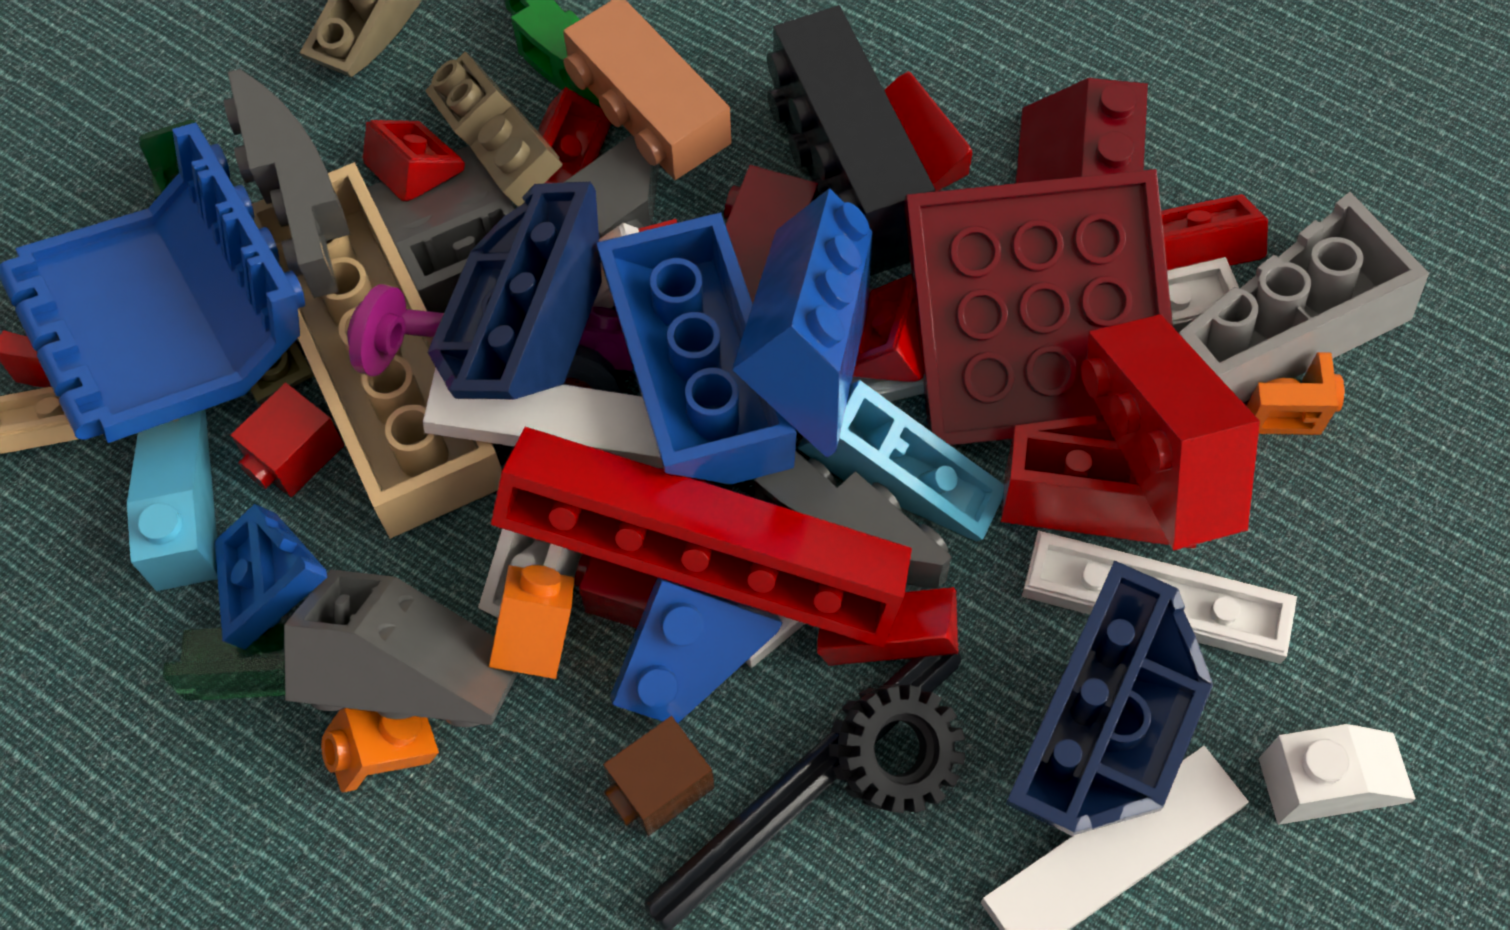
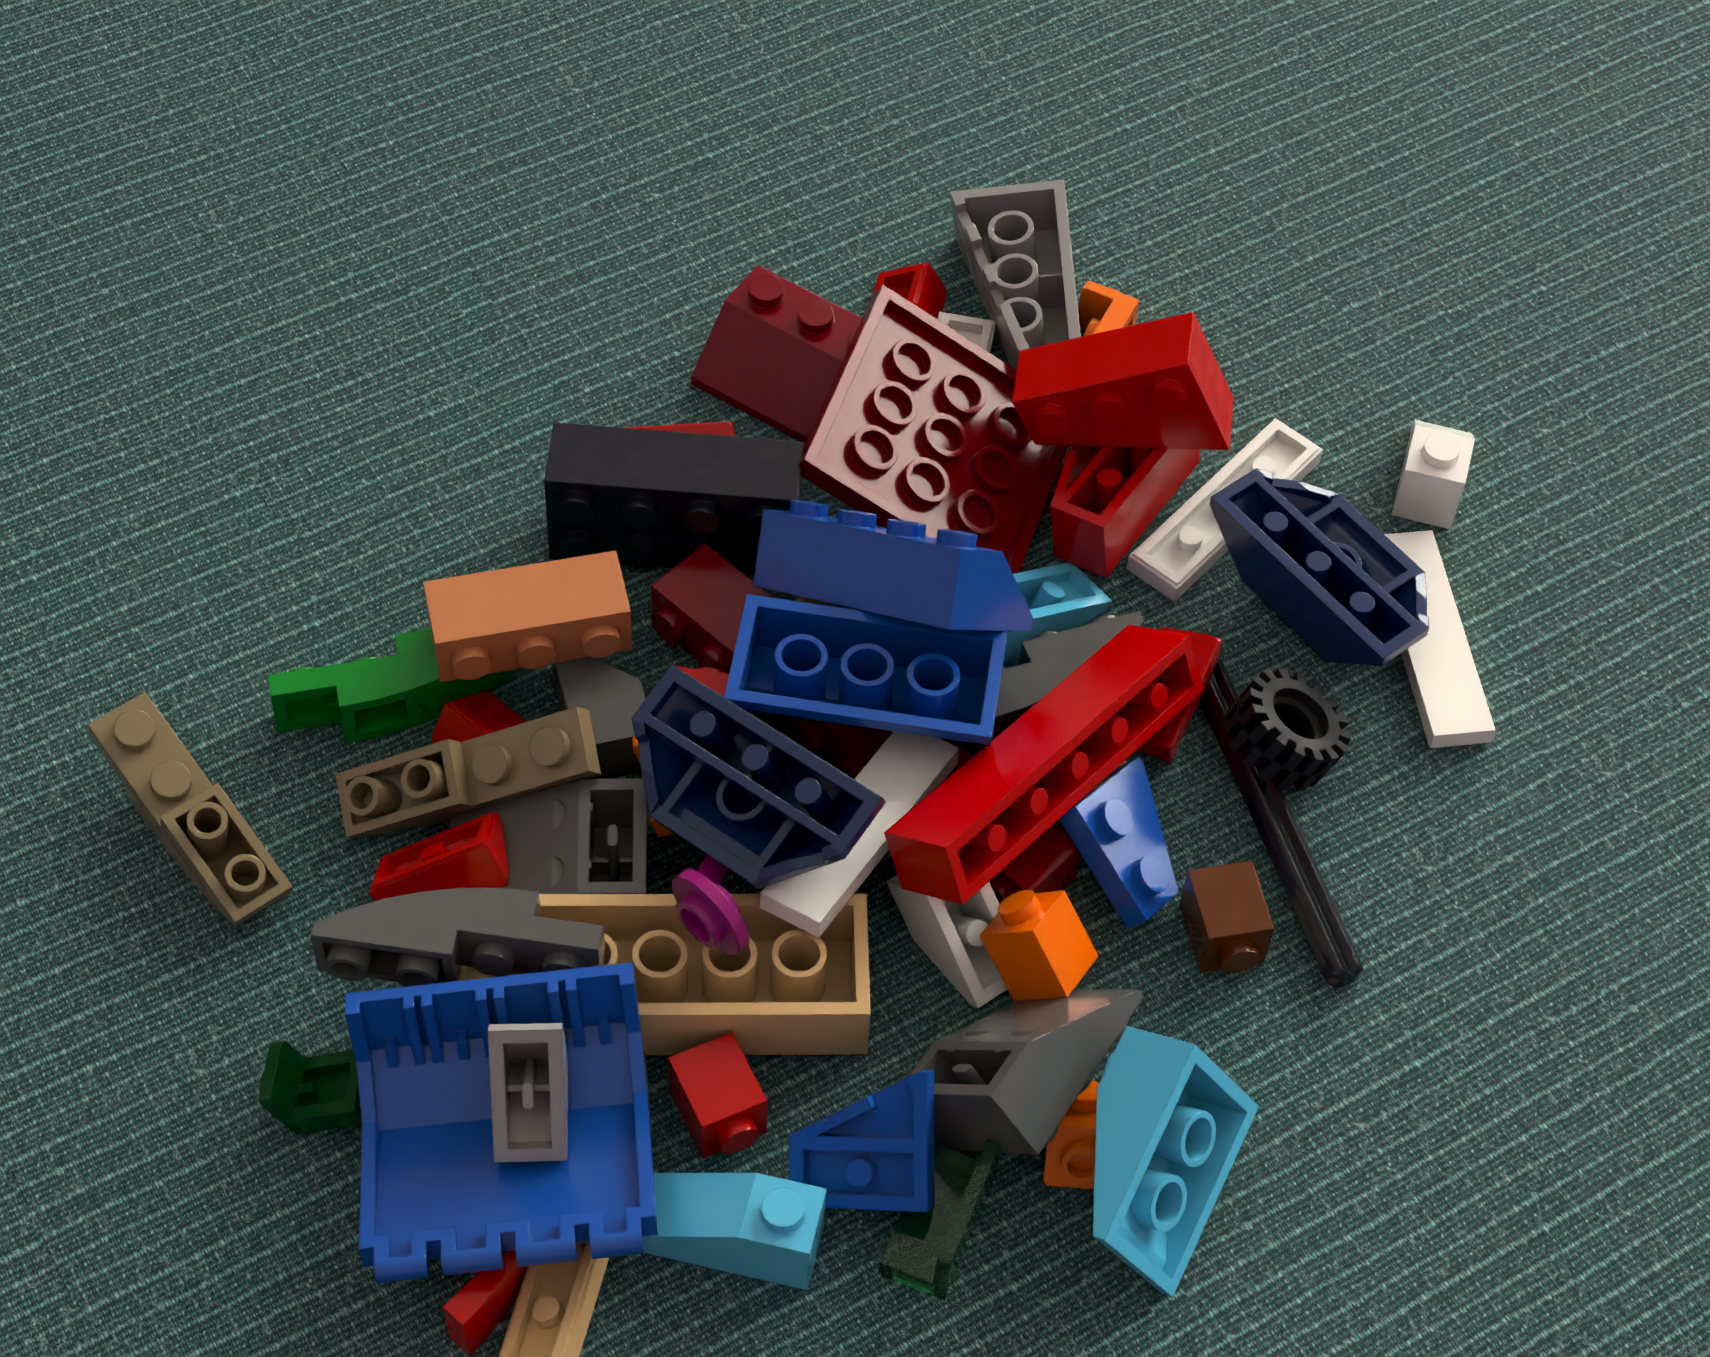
camera: 70 degrees left, 10 degrees down
(180, 287) = (529, 1092): none -> light grey slope
(344, 808) = (1162, 1151): none -> medium azure slope

